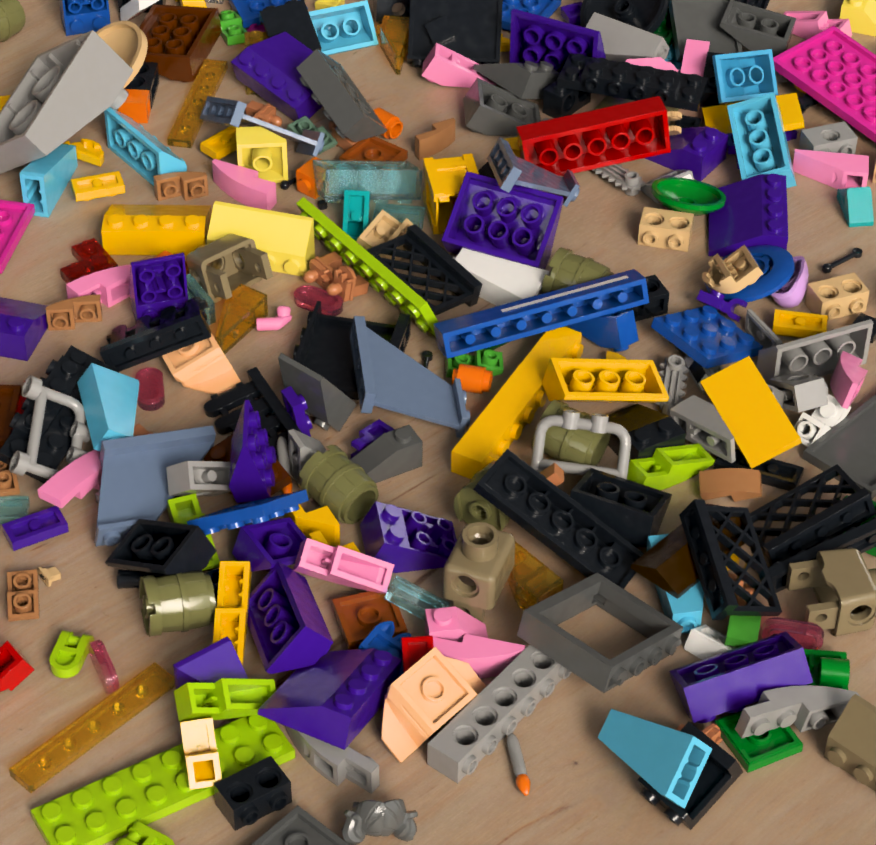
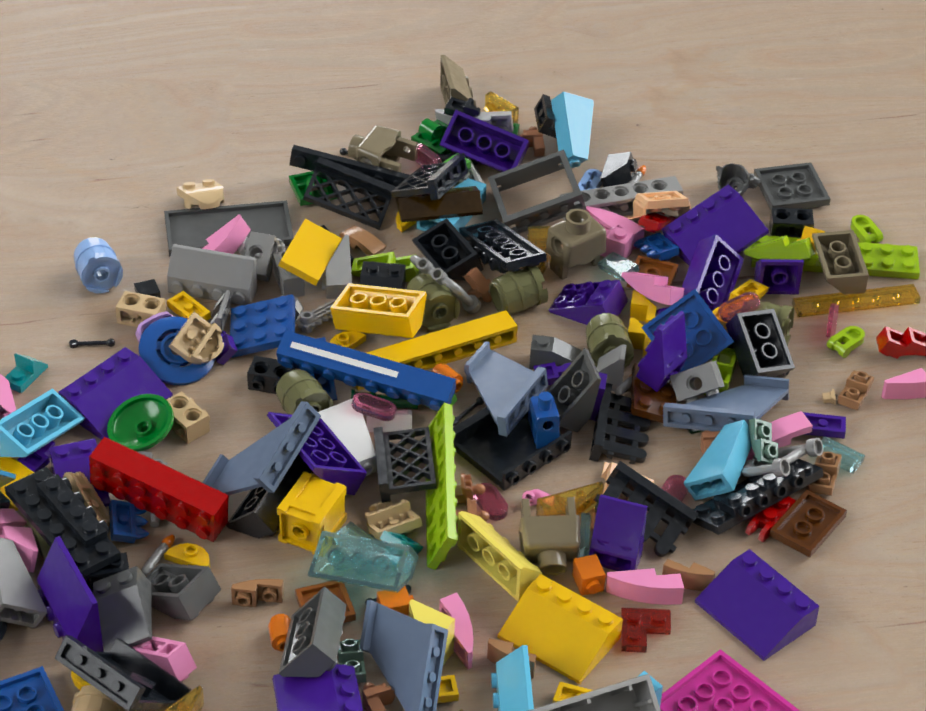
camera: 145 degrees left, 0 degrees up
(78, 440) = (761, 441): none -> sand green slope
(135, 720) = (842, 261): none -> dark tan slope
(213, 571) = (743, 303): none -> tile
(328, 357) = (543, 409): none -> blue torso
(502, 295) = (374, 406): none -> clear pink tile
(546, 746) = (618, 169): none -> slope
(561, 722) = (590, 180): none -> light blue beam
(795, 771) = (495, 103): none -> clear yellow plate
(820, 695) = (463, 106): none -> black slope

